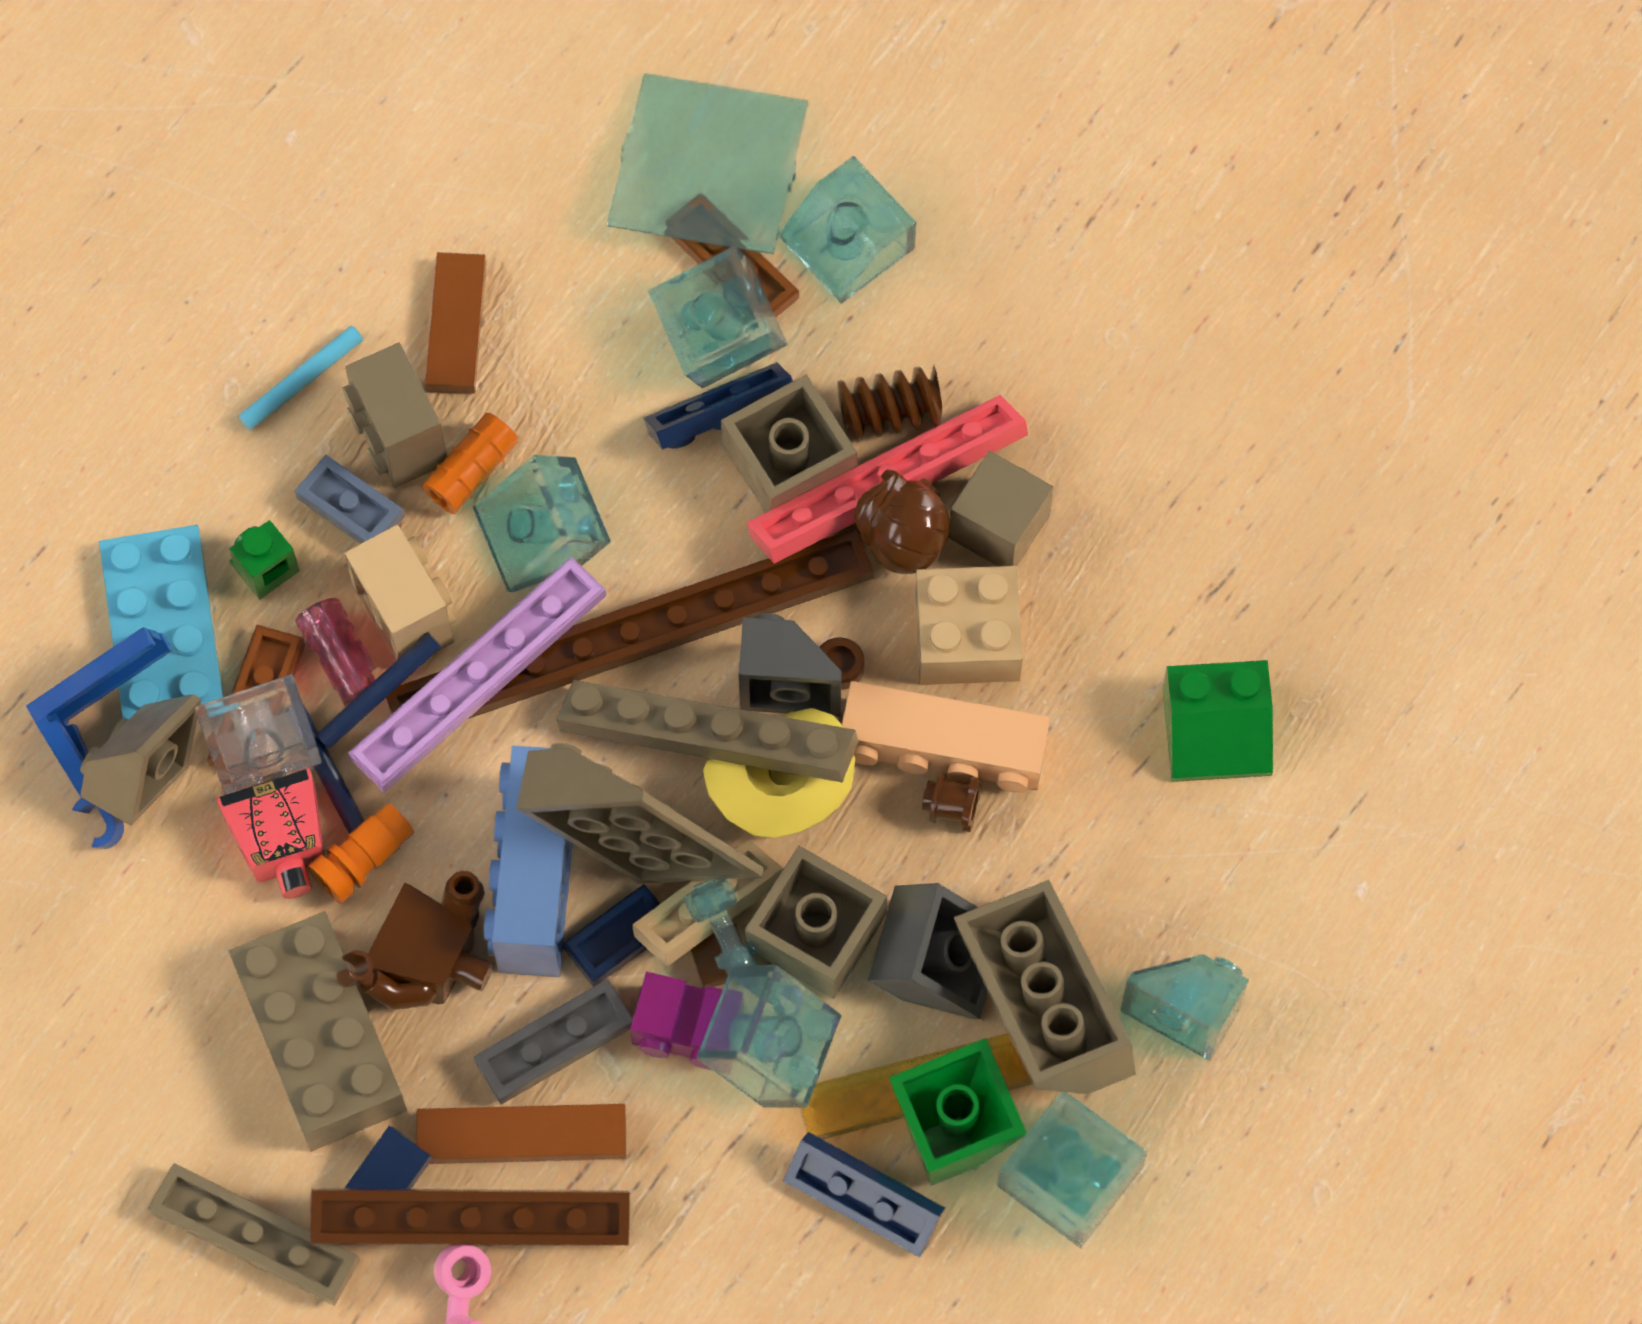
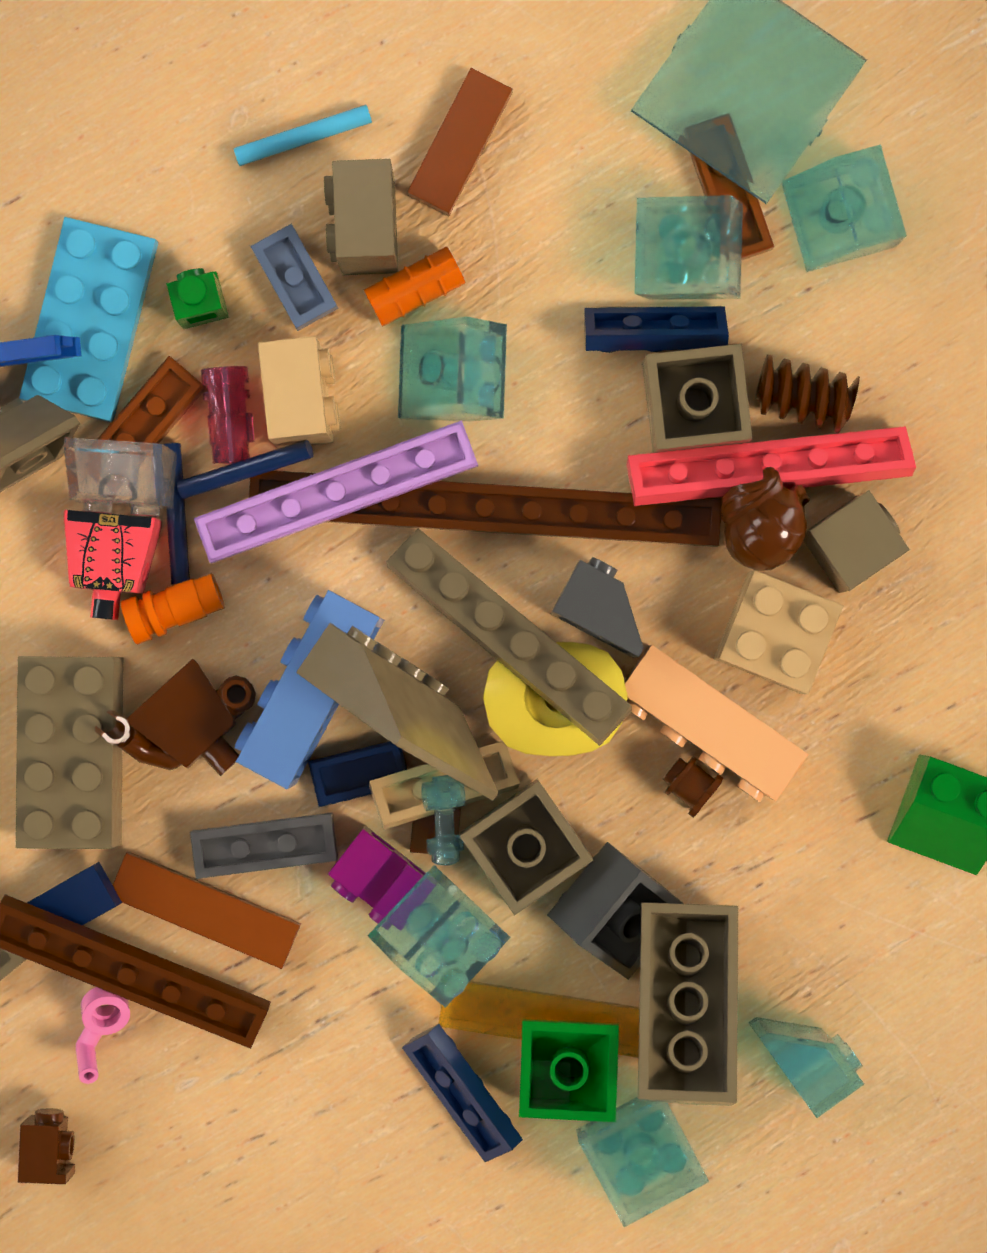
camera: 25 degrees right, 20 degrees up
(847, 657) = (654, 611): reddish brown tile -> none

